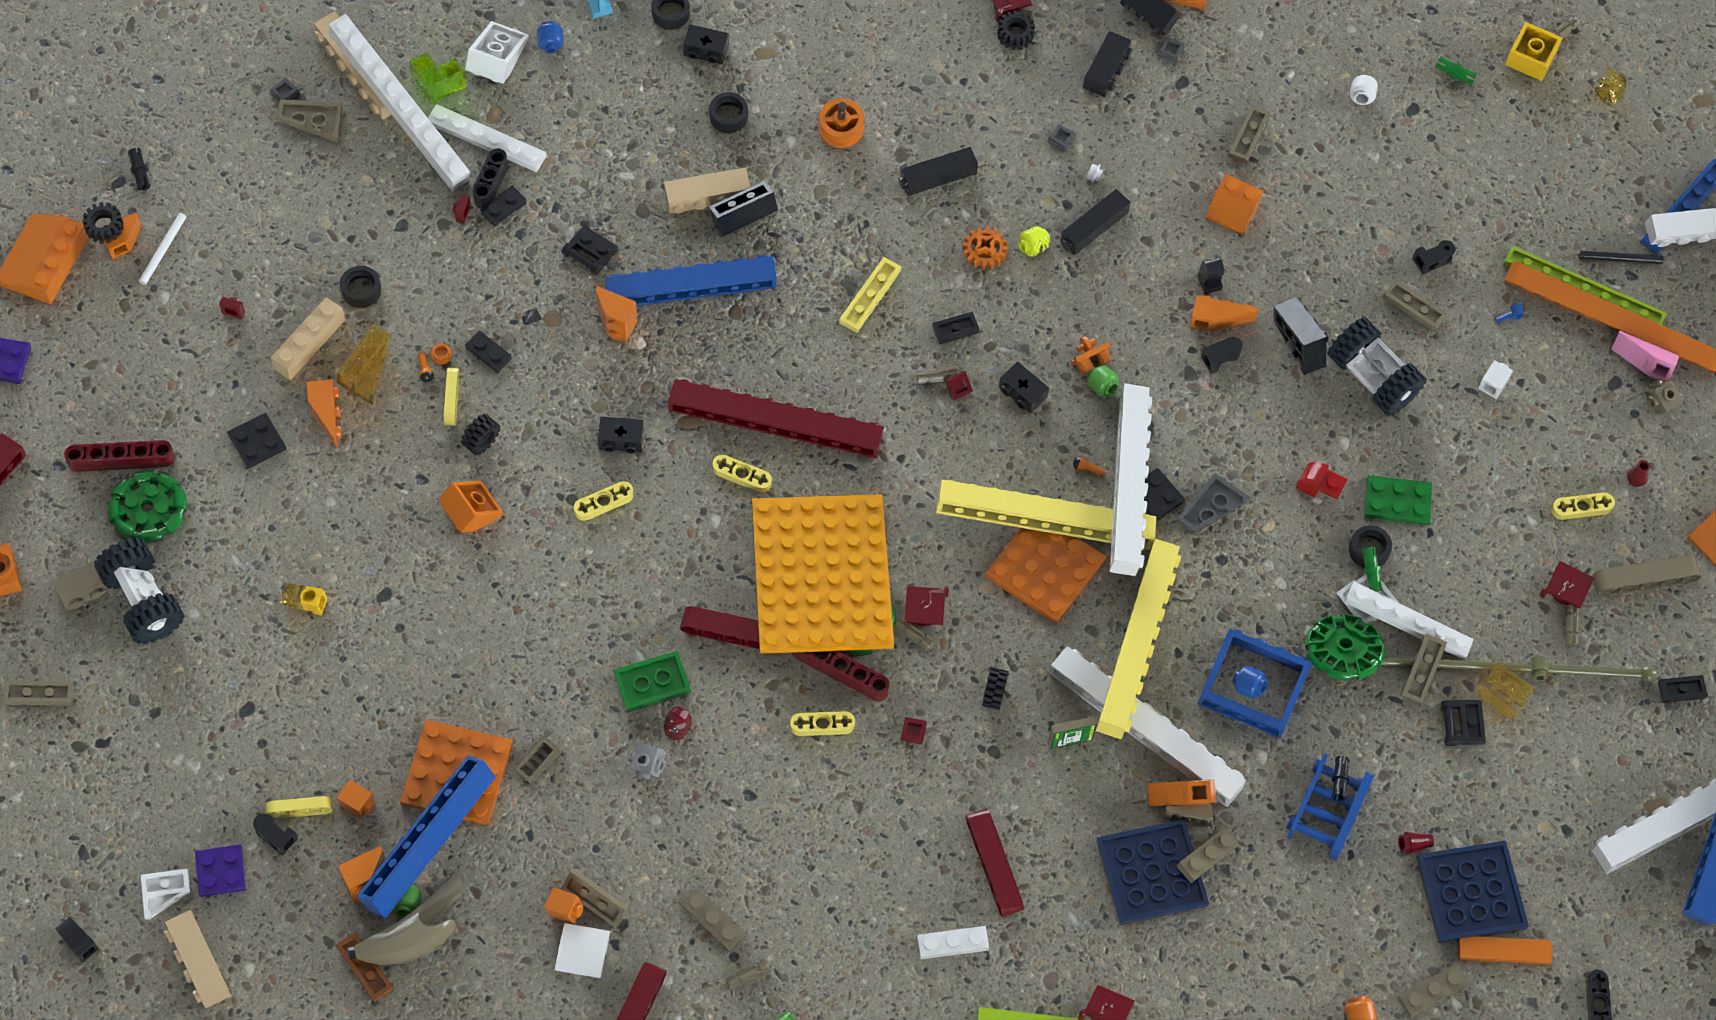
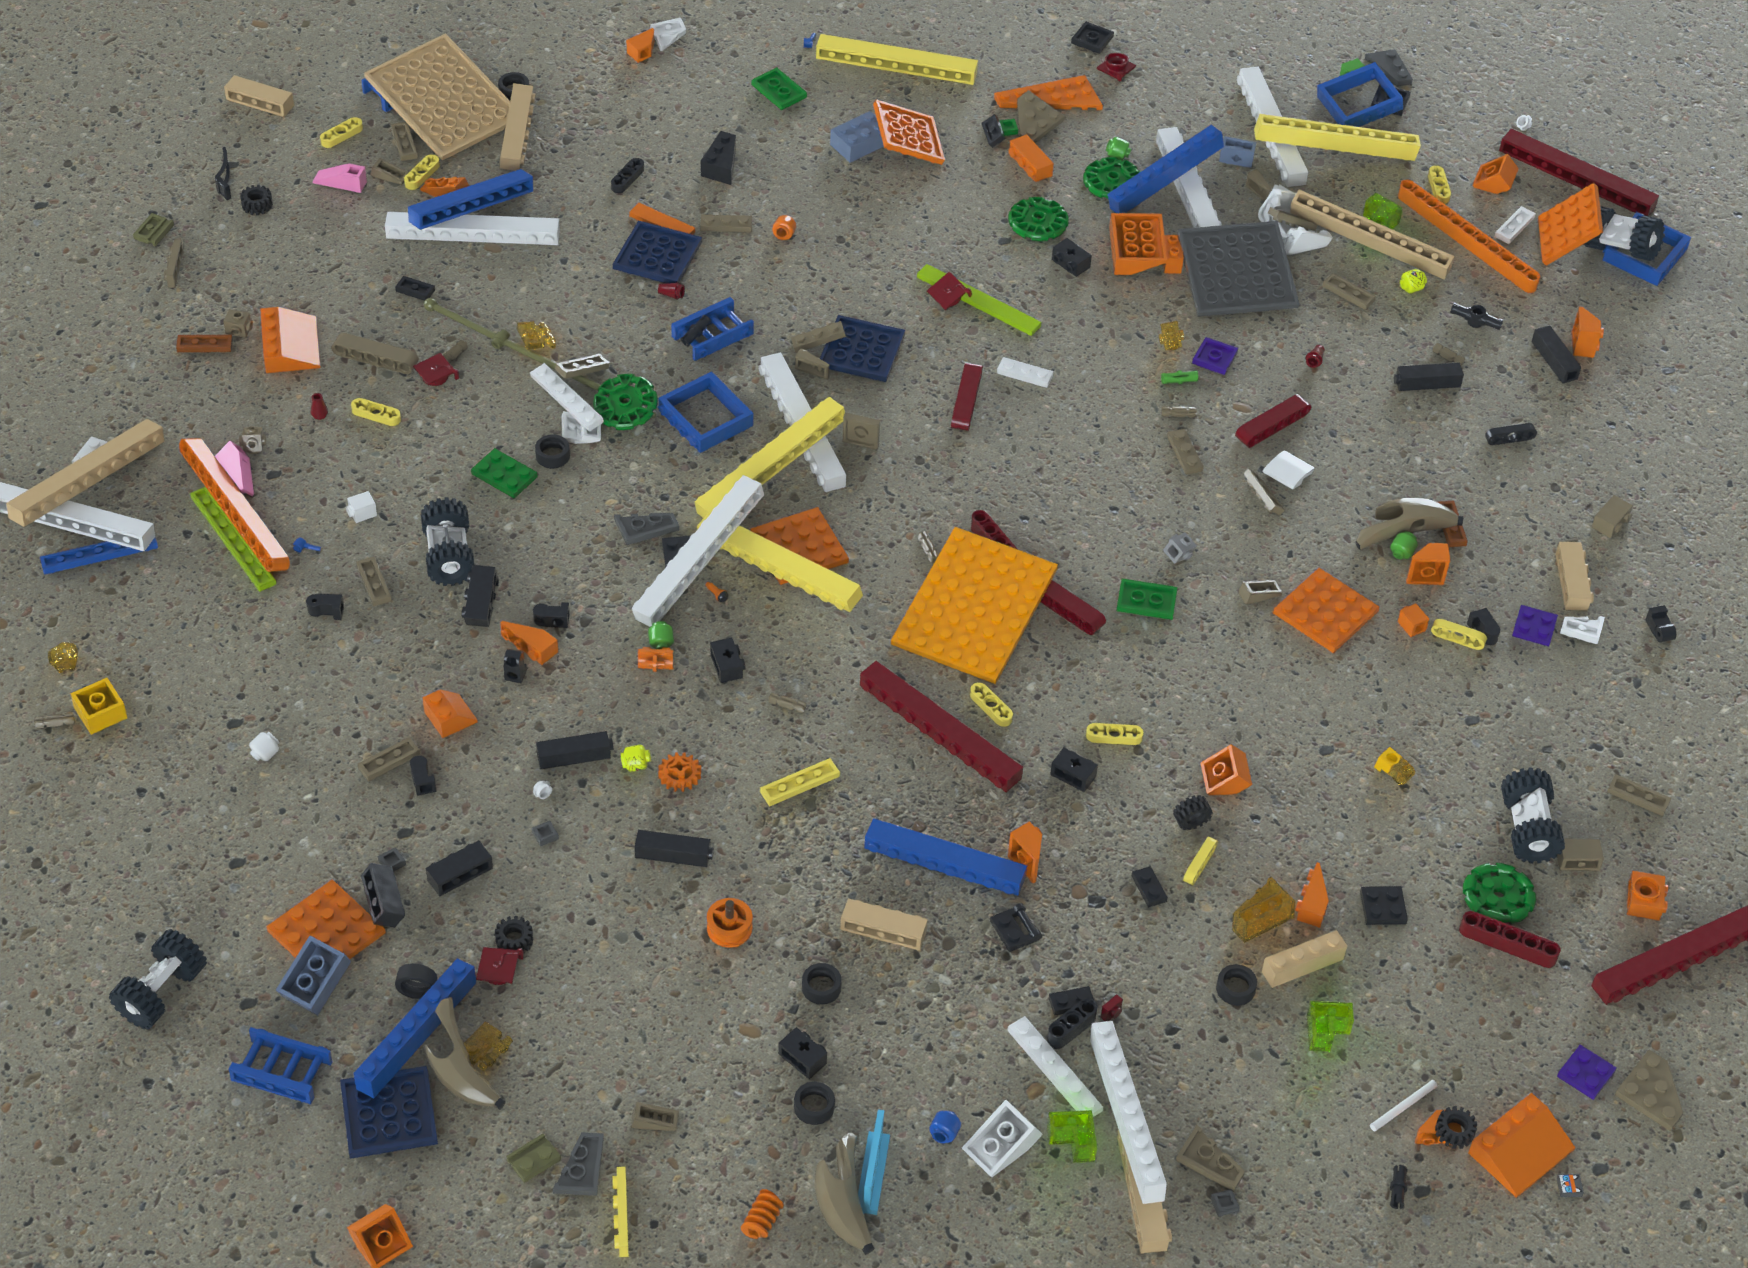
camera: 150 degrees left, 15 degrees down
(232, 307) = (1362, 1017): dark red plate -> none
(262, 283) = (1325, 1020): none -> clear neon green brick
(426, 373) = (1212, 892): orange piece -> none
(426, 836) = (1373, 556): blue brick -> none
(441, 354) = (1191, 900): orange plate -> none
(564, 906) = (1289, 493): orange brick -> none
(677, 723) = (1143, 563): dark red rock -> none
(743, 208) = (864, 888): black brick -> none
(806, 717) = (1047, 524): light yellow beam -> none
(913, 730) = (971, 489): dark red plate -> none
(925, 605) = (909, 554): dark red hat -> none
(955, 328) = (748, 726): black plate -> none
(958, 385) = (777, 685): dark red plate -> none
(995, 688) = (896, 480): black tyre -> none
(1182, 792) = (807, 363): orange slope -> none
(1208, 131) = (422, 782): none -> black leg
(1250, 682) = (714, 398): blue head -> none
(1318, 478) = (556, 499): red brick -> none
(1372, 569) = (567, 429): green pin -> none
(1455, 70) = (173, 729): green pin -> none
(1470, 719) = (576, 330): black plate -> none
(1625, 257) = (184, 546): black bar -> none

